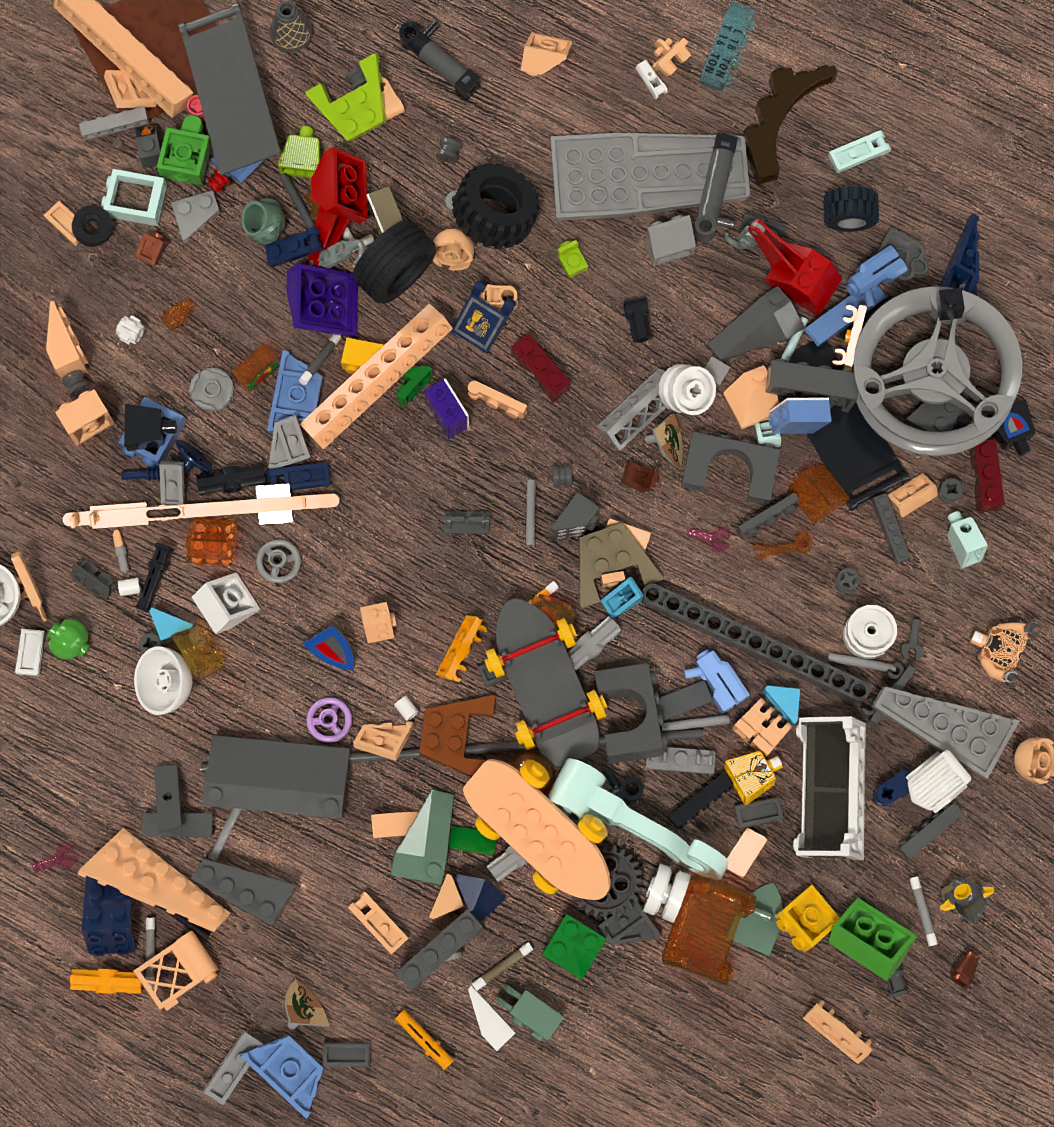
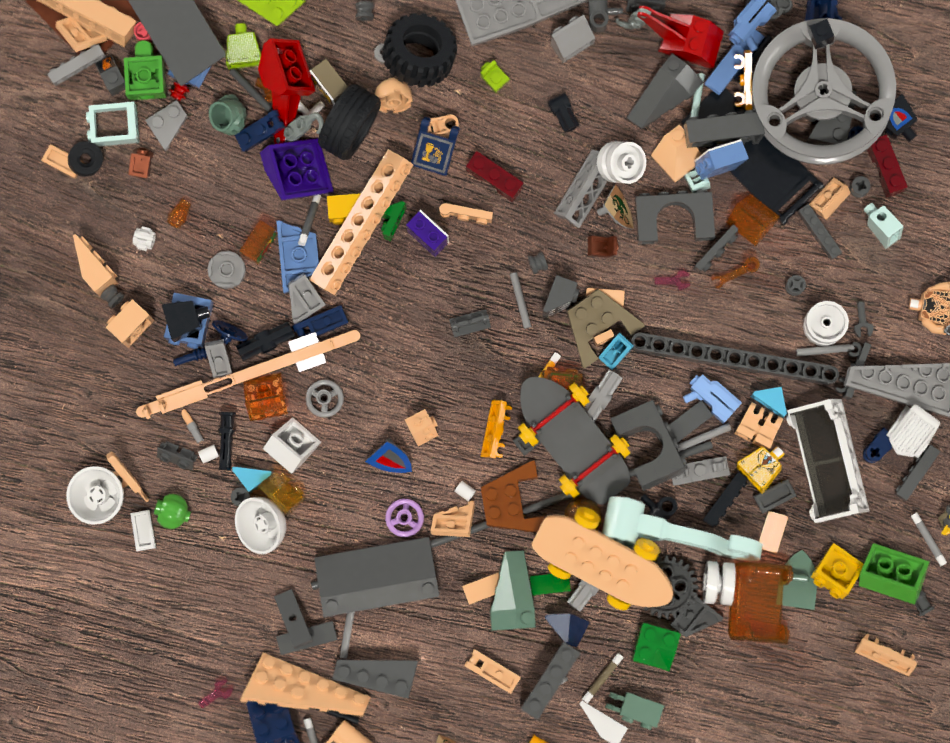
camera: 10 degrees left, 5 degrees up
(447, 900) = (543, 637): light nougat slope -> none
(717, 370) = (640, 137): light grey tile -> none

